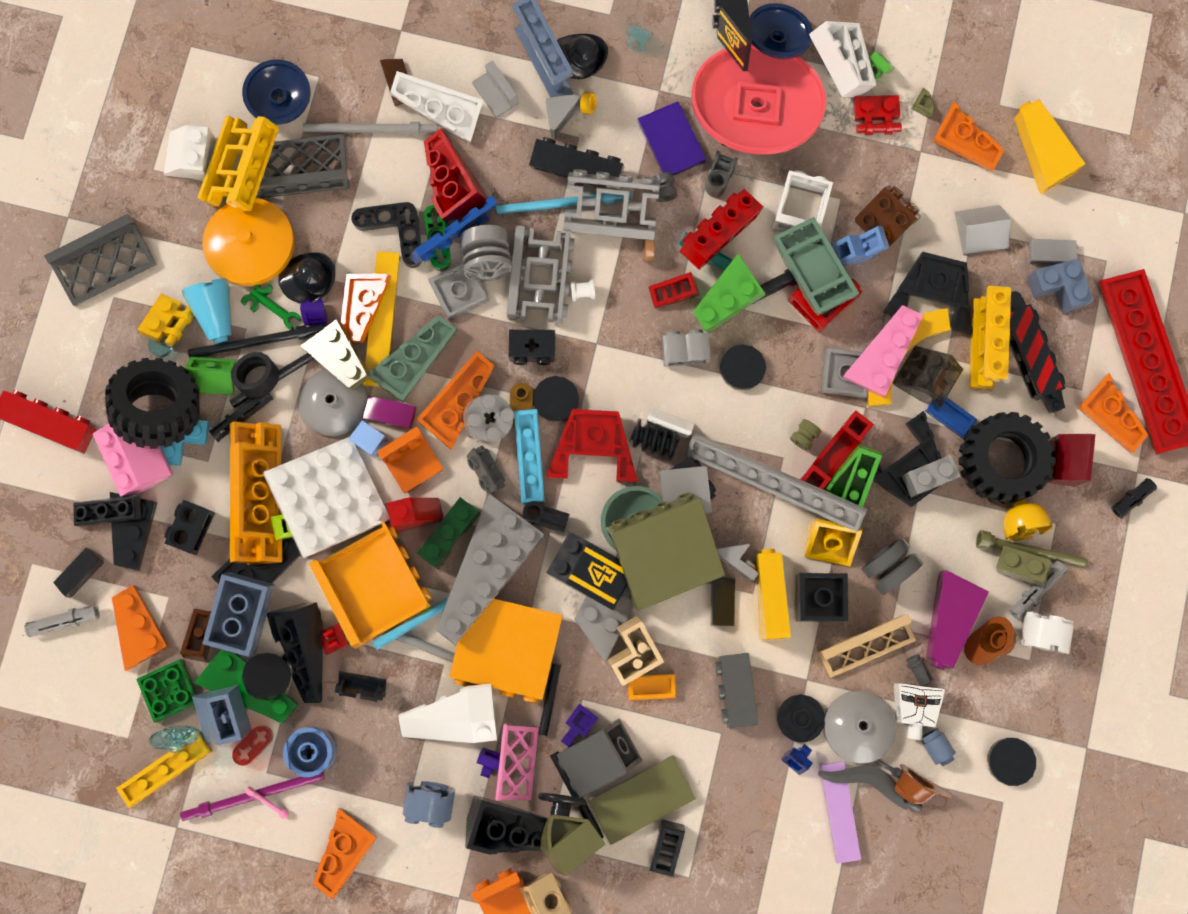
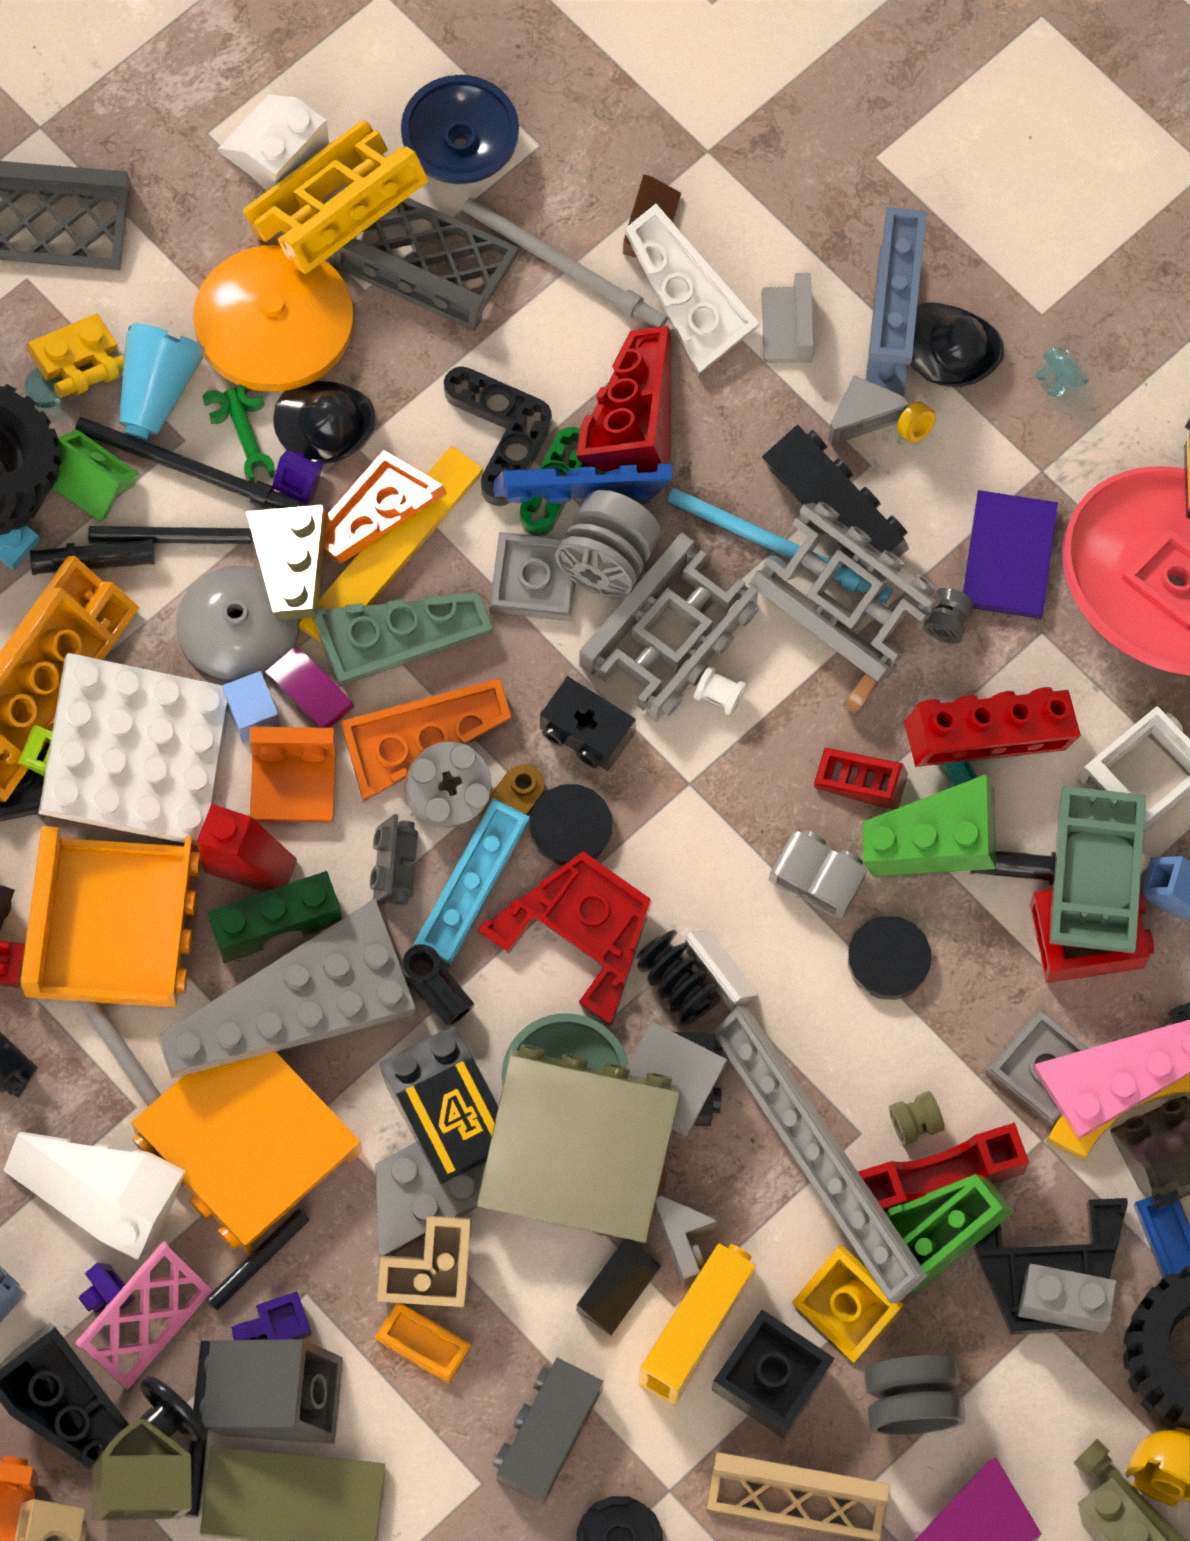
camera: 35 degrees right, 10 degrees down
(248, 363) = (151, 490): black tyre -> none
(410, 624) = (120, 1012): medium azure bar -> none
(721, 171) = (1055, 644): dark grey piece -> none

